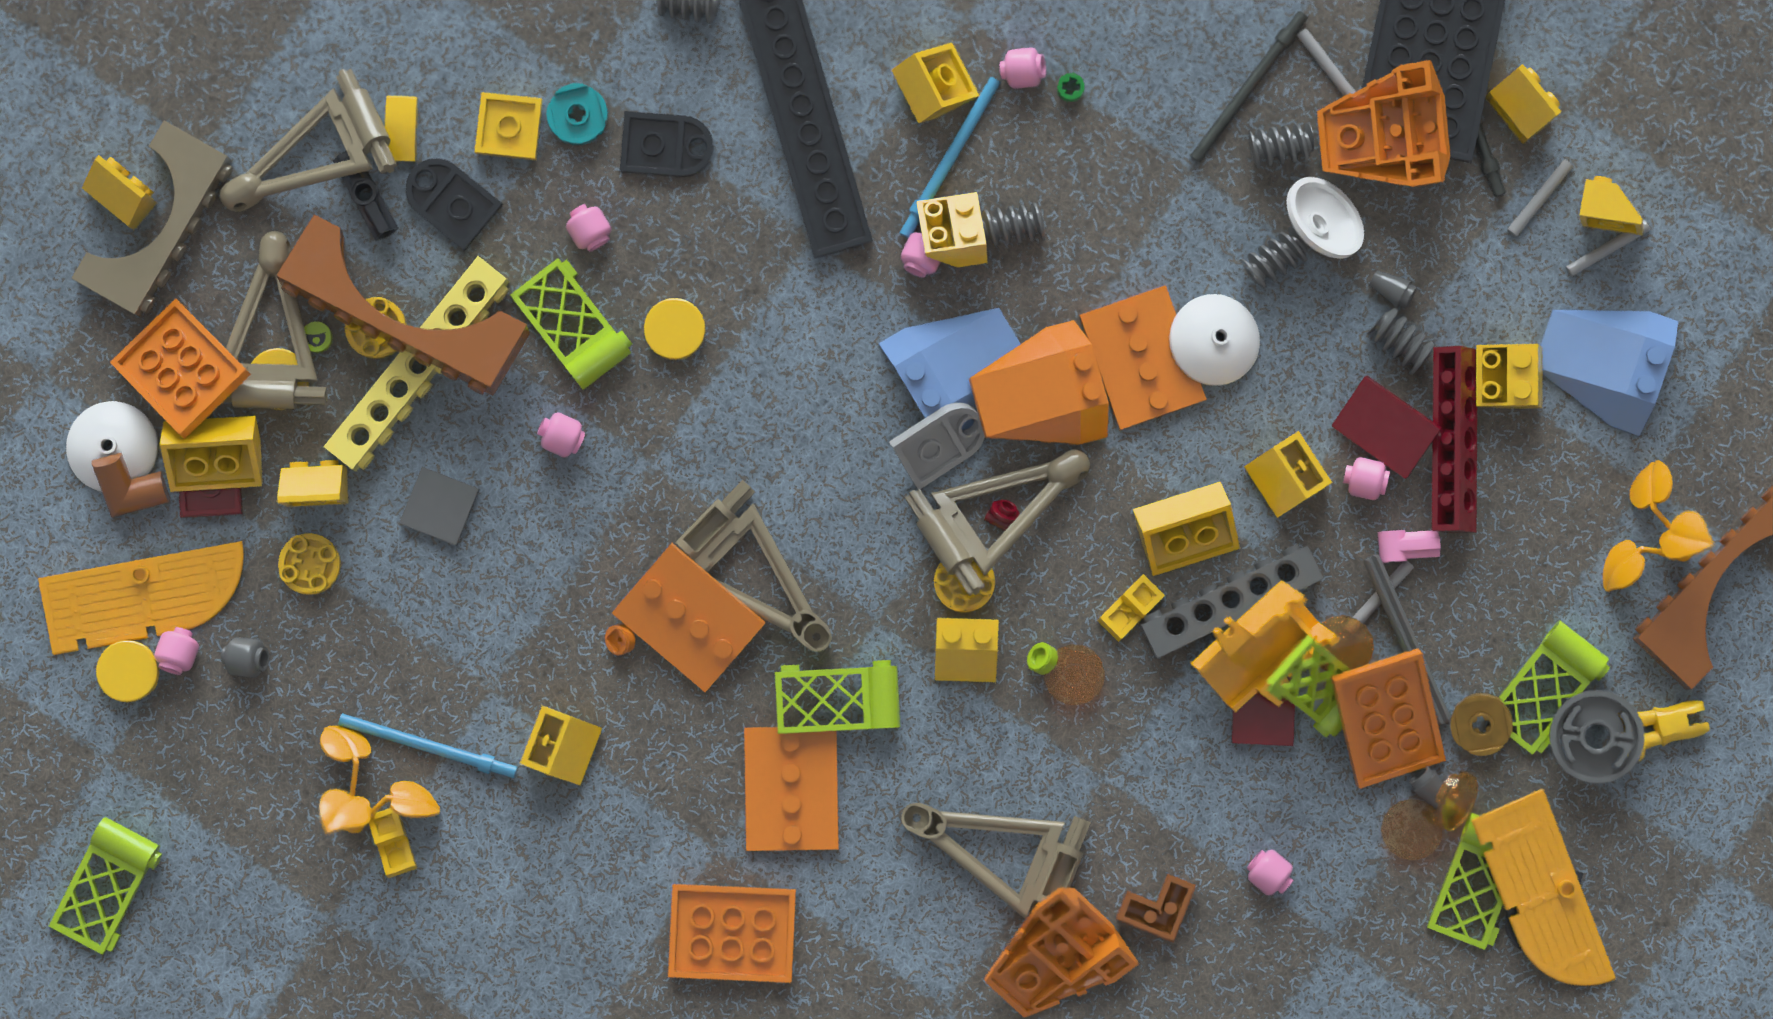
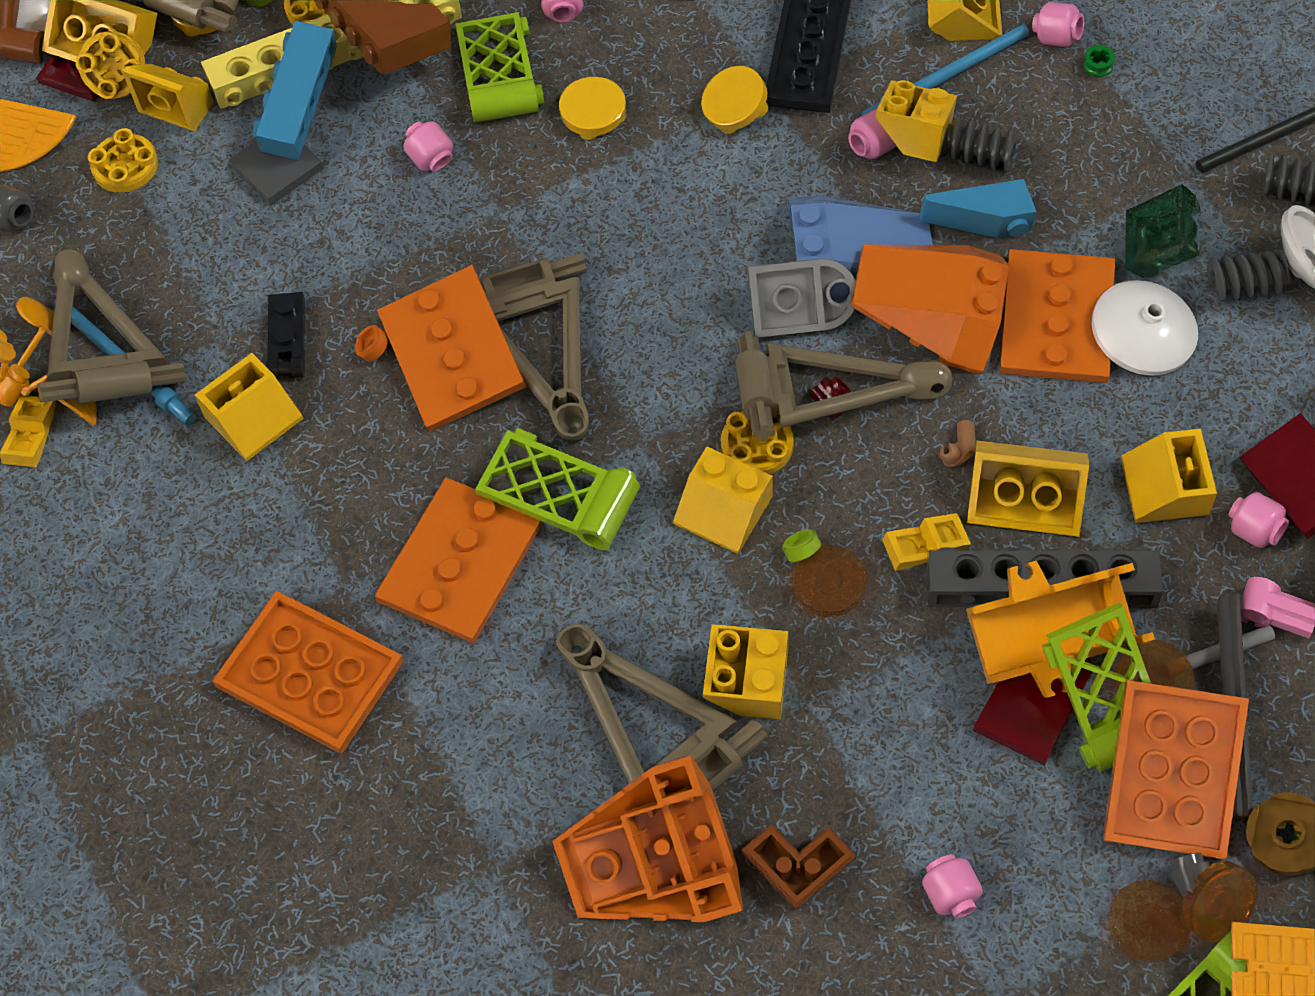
camera: 30 degrees right, 25 degrees down
(248, 485) = (104, 59): none -> yellow tile
(426, 441) = (295, 90): none -> dark azure brick
(434, 776) = (101, 376): none -> dark tan piece
(545, 661) = (286, 334): none -> black plate
(791, 271) = (734, 98): none -> yellow tile
(1050, 287) = (985, 210): none -> dark azure slope
(1053, 782) = (747, 670): none -> yellow slope
(1122, 515) = (963, 449): none -> medium nougat arm
(1195, 253) = (1161, 232): none -> clear green brick

